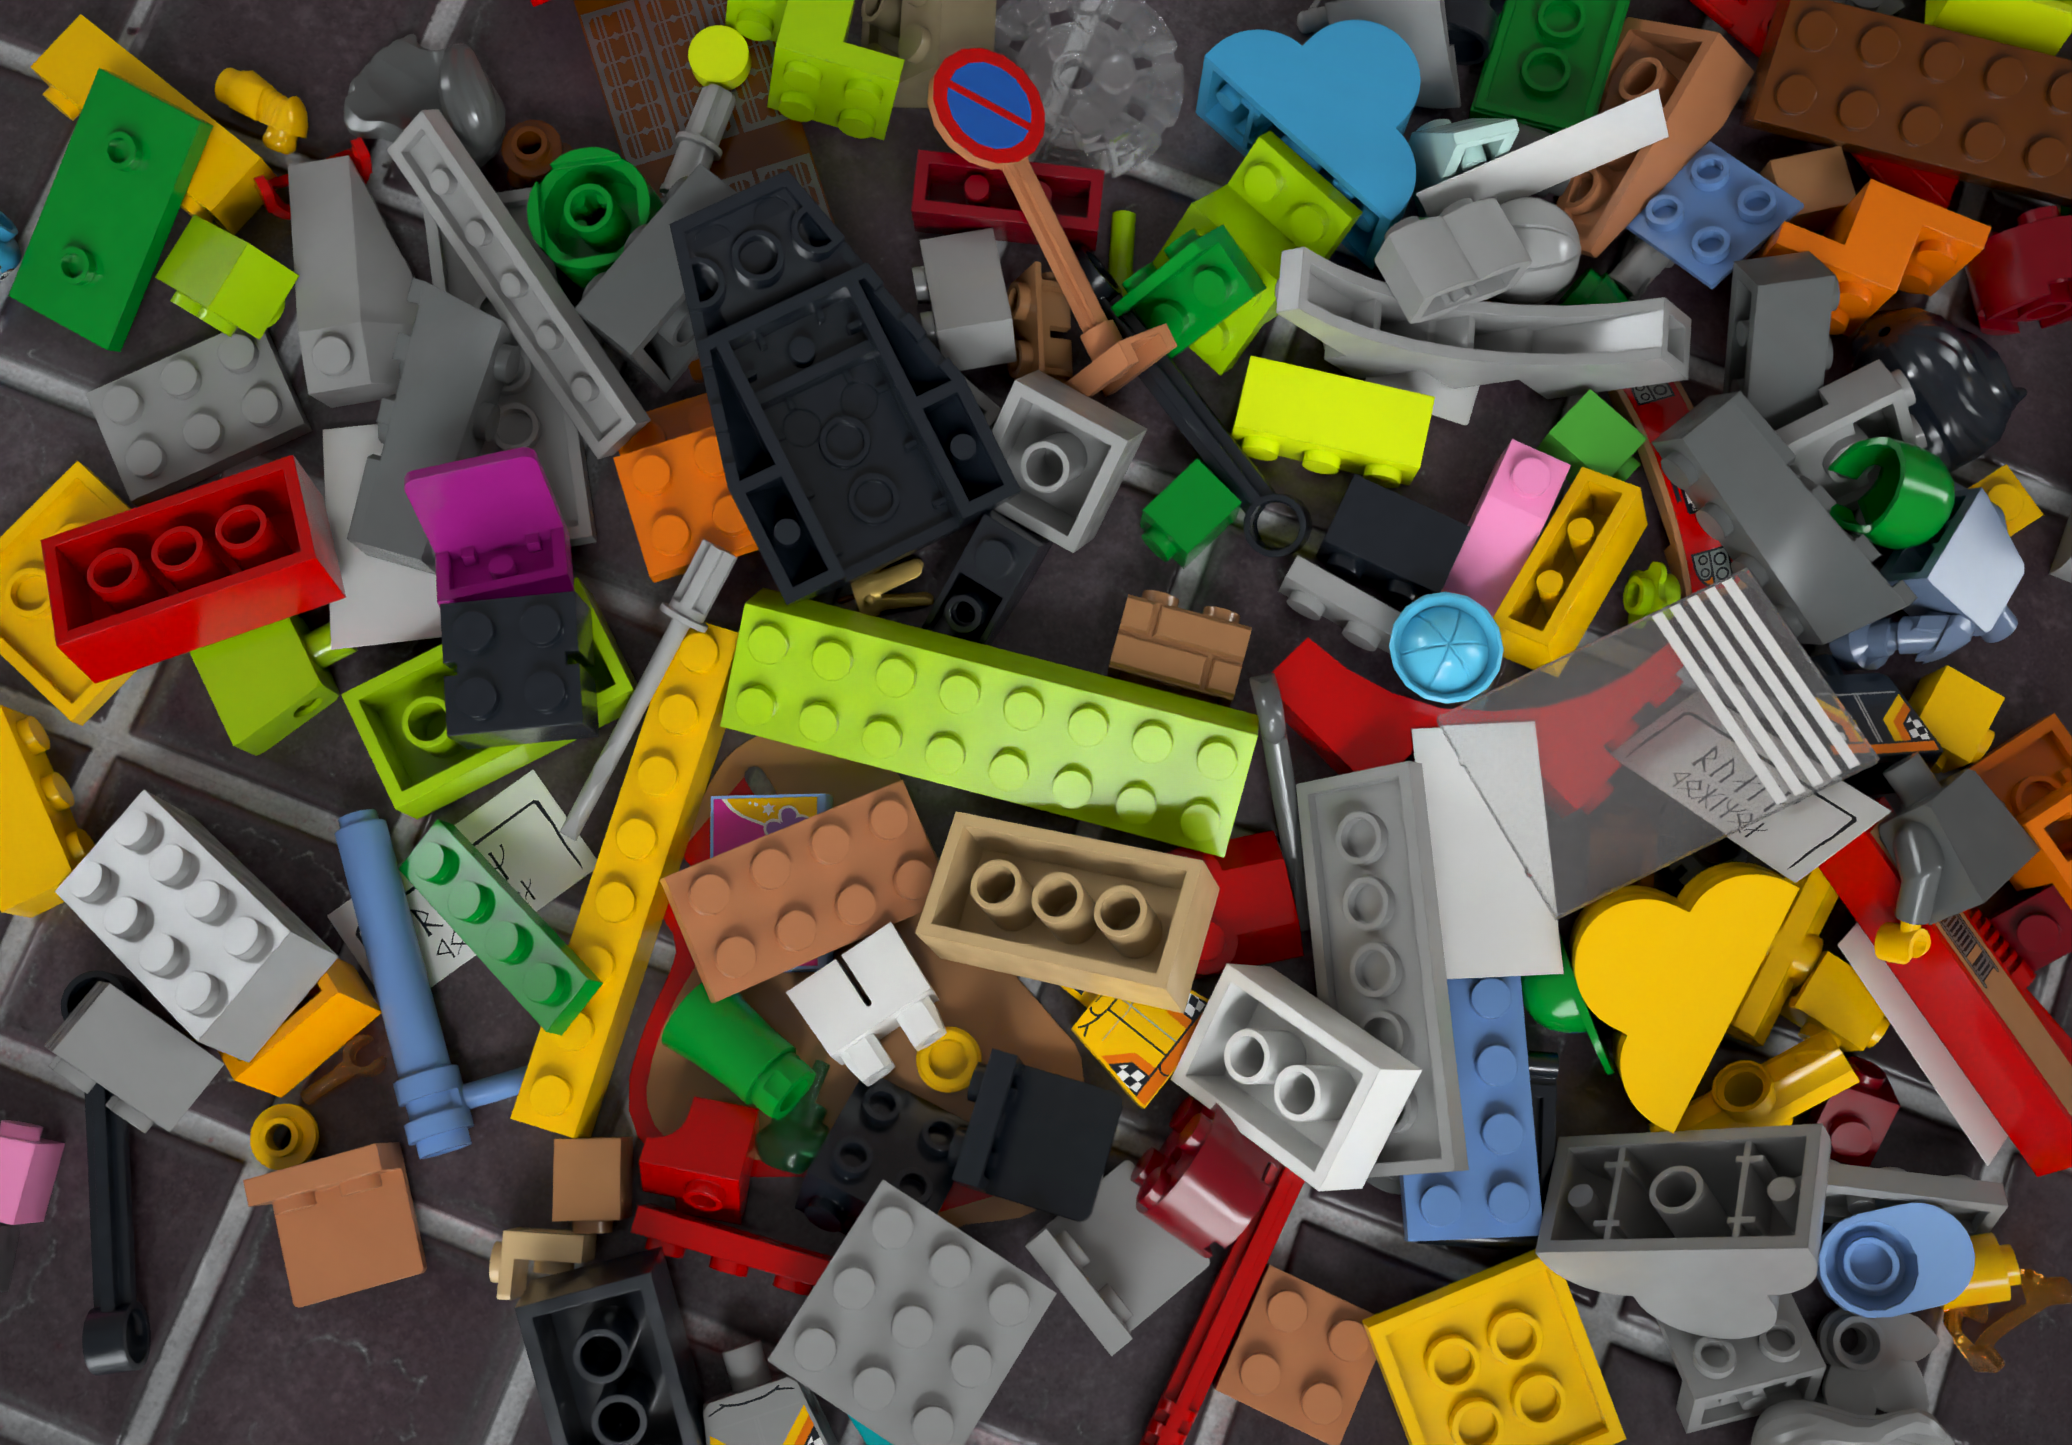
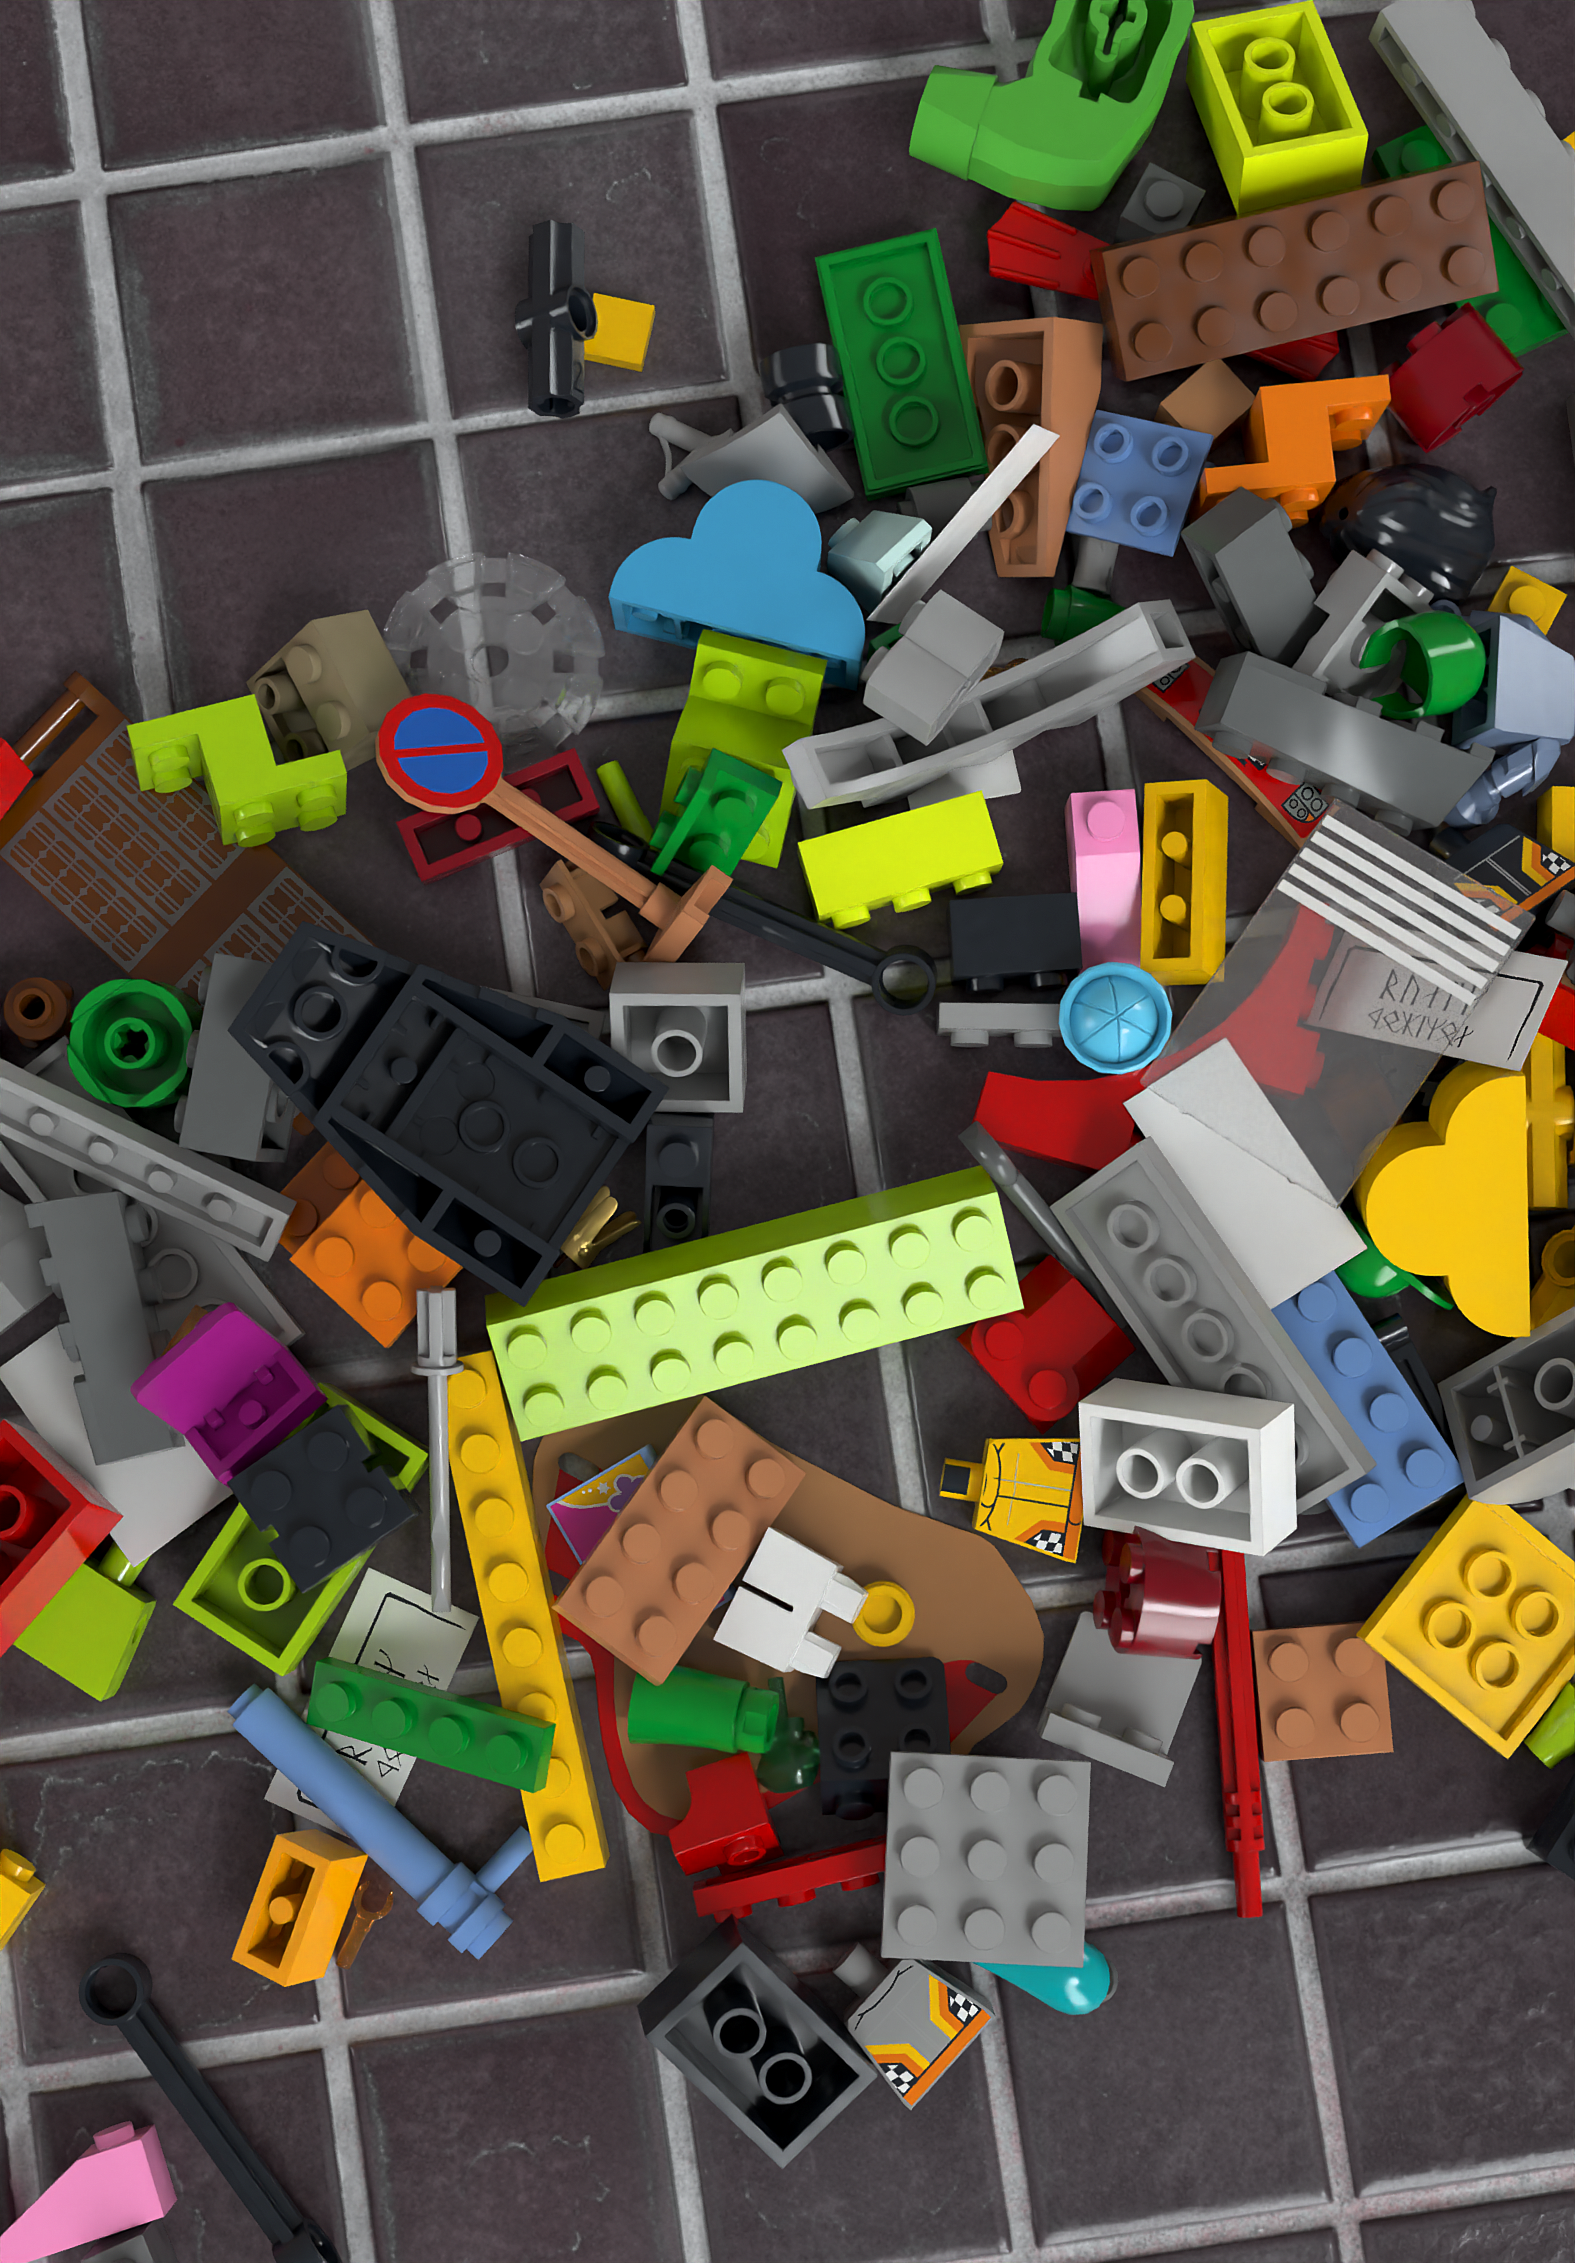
camera: 30 degrees left, 5 degrees up
(132, 1055) = (183, 2015): light grey brick -> none
(196, 927) = (167, 1875): light grey brick -> none
(303, 1136) = (360, 1993): yellow plate -> none
(343, 1222) = (444, 2051): nougat bracket -> none
(550, 1249) = (635, 1969): tan bracket -> none
(592, 1182) = (638, 1893): medium nougat brick -> none
(702, 135) = (184, 917): light grey axle -> none
(719, 57) = (154, 824): neon yellow tile -> none
(967, 299) = (515, 931): light grey brick -> none
(1035, 1137) = (996, 1638): black bracket -> none
(1069, 910) = (918, 1432): tan brick -> none
(1180, 648) = (881, 1141): medium nougat brick -> none
(1188, 515) = (821, 1016): green brick -> none
(1551, 244) = (1002, 594): light grey piece -> none
(1594, 438) = (1142, 750): bright green brick -> none
(1650, 591) = (1263, 860): lime plate -> none

